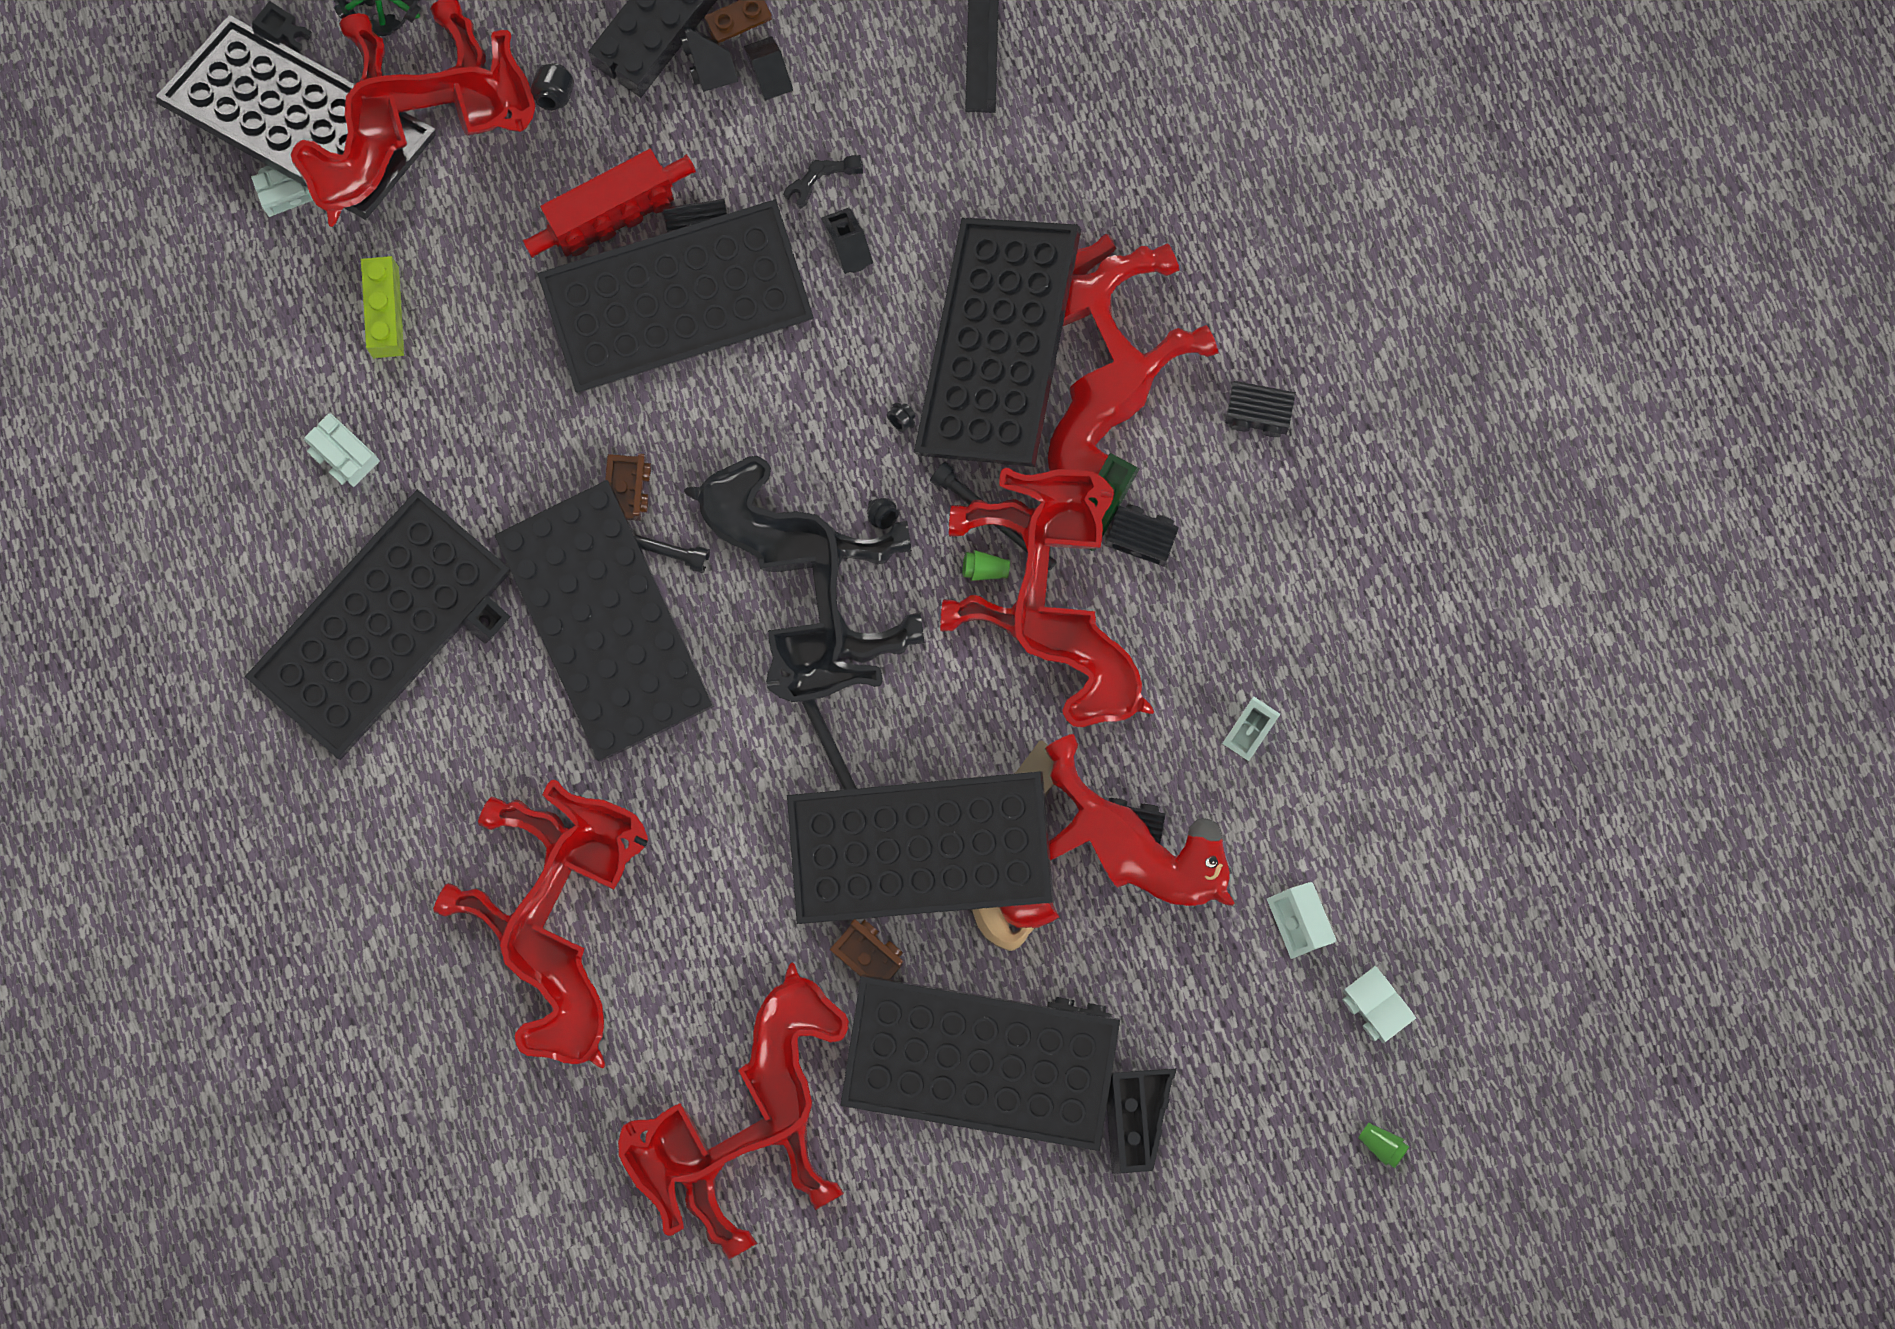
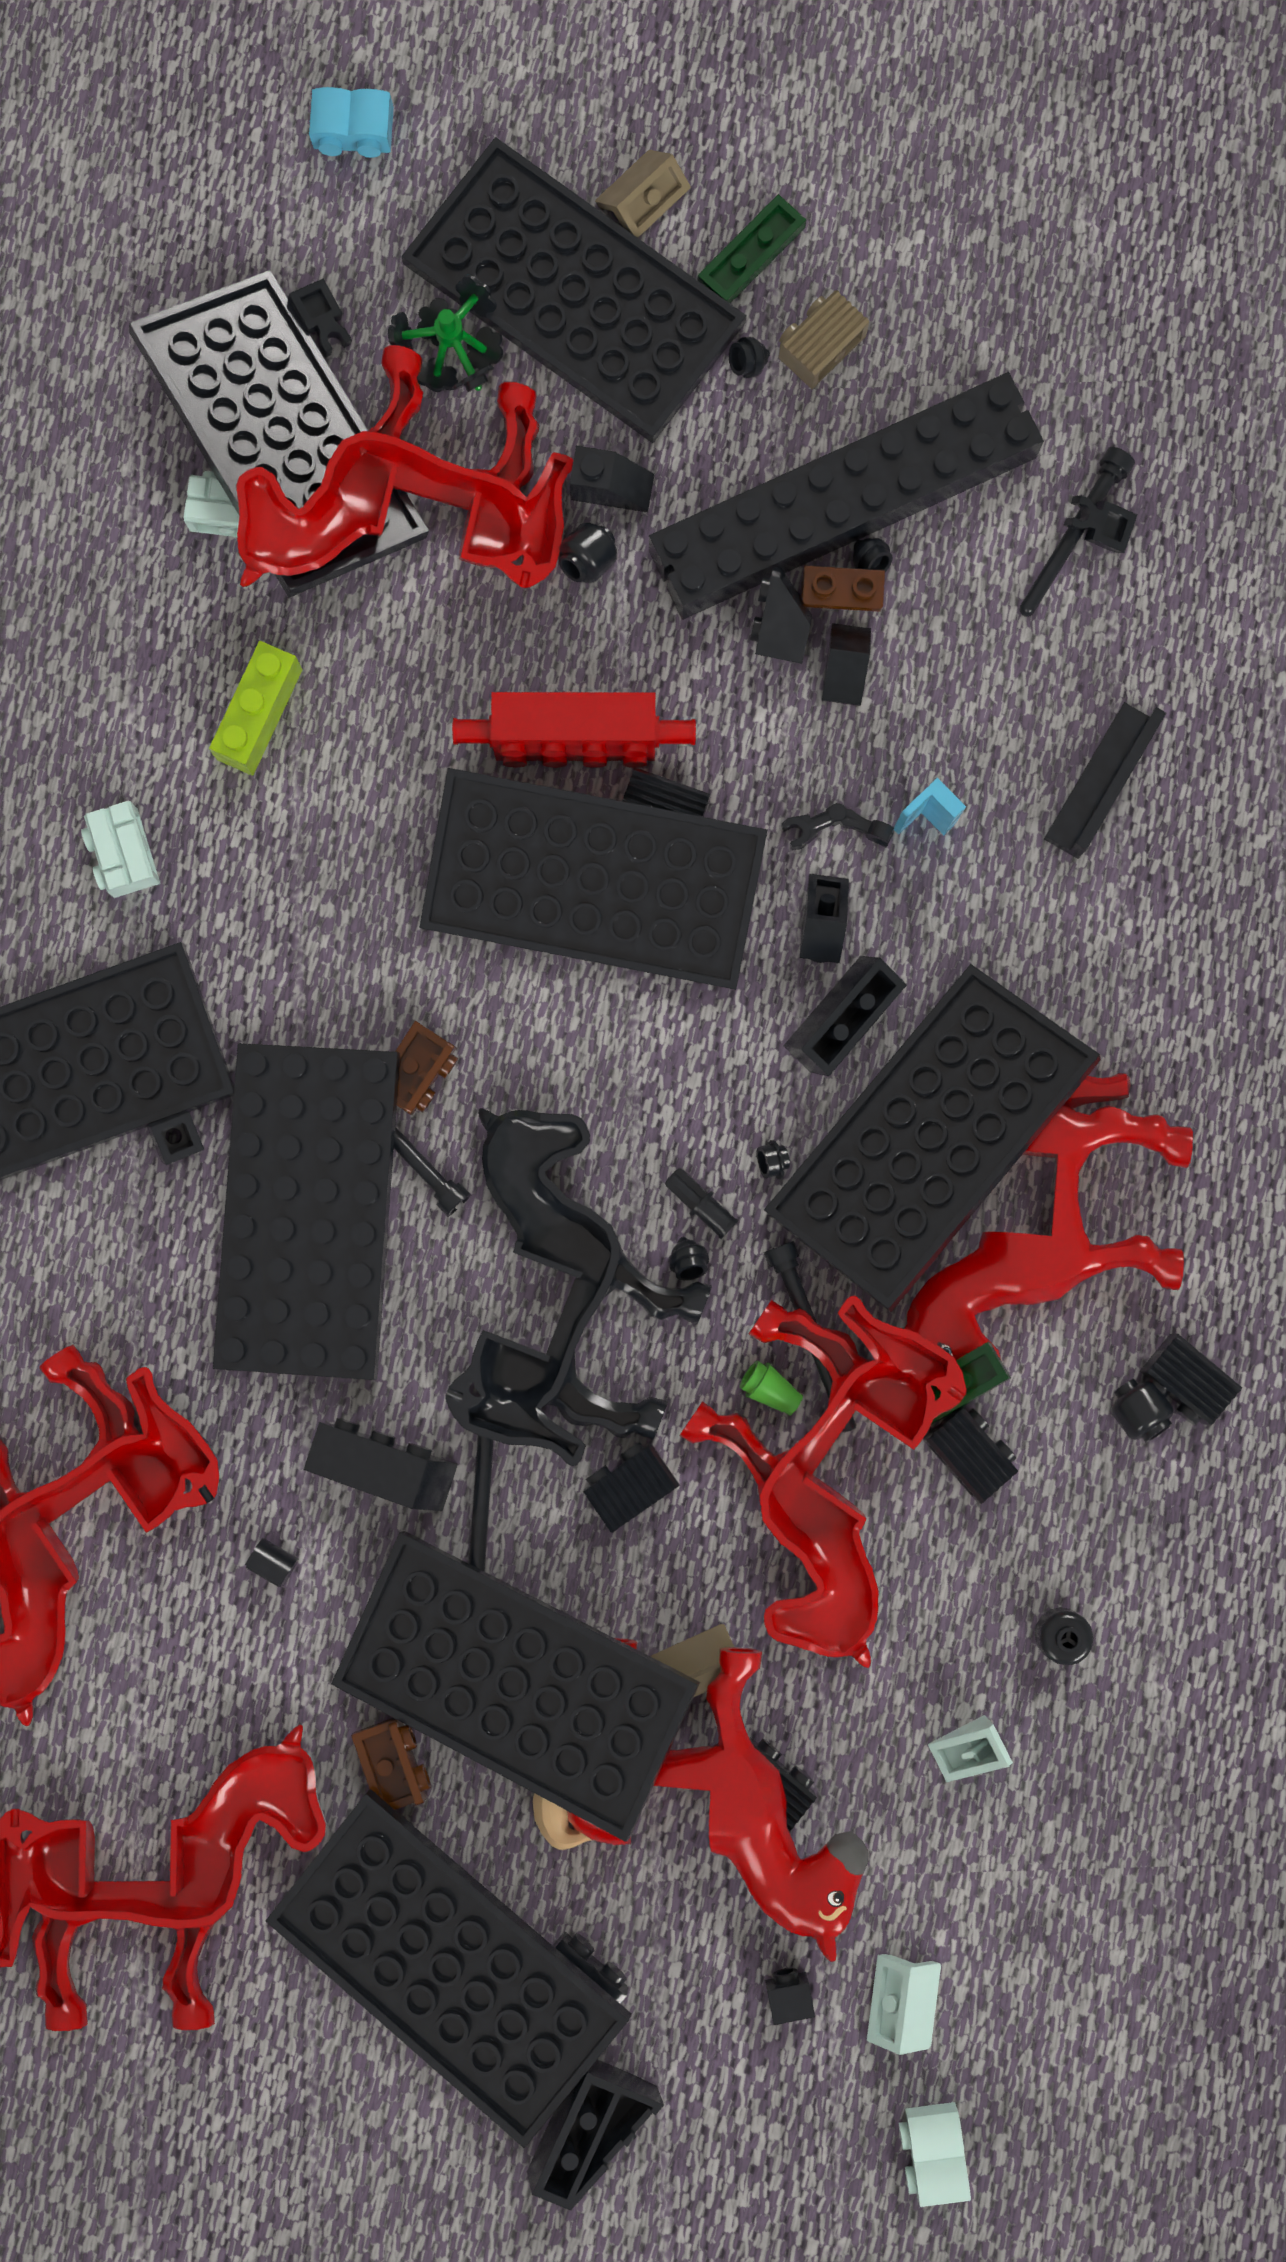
camera: 25 degrees right, 5 degrees up
(540, 31) = (609, 480): none -> black slope
(711, 867) = (271, 1562): none -> black brick
(748, 758) = (380, 1466): none -> black wedge
(869, 471) = (700, 1202): none -> black axle
(880, 125) = (936, 804): none -> medium azure panel
(896, 294) = (845, 1015): none -> black brick
(926, 682) = (630, 1486): none -> black brick
(1221, 955) = (789, 1996): none -> black plate
(1239, 445) = (1142, 1410): none -> black head
(1263, 626) = (1053, 1626): none -> black head

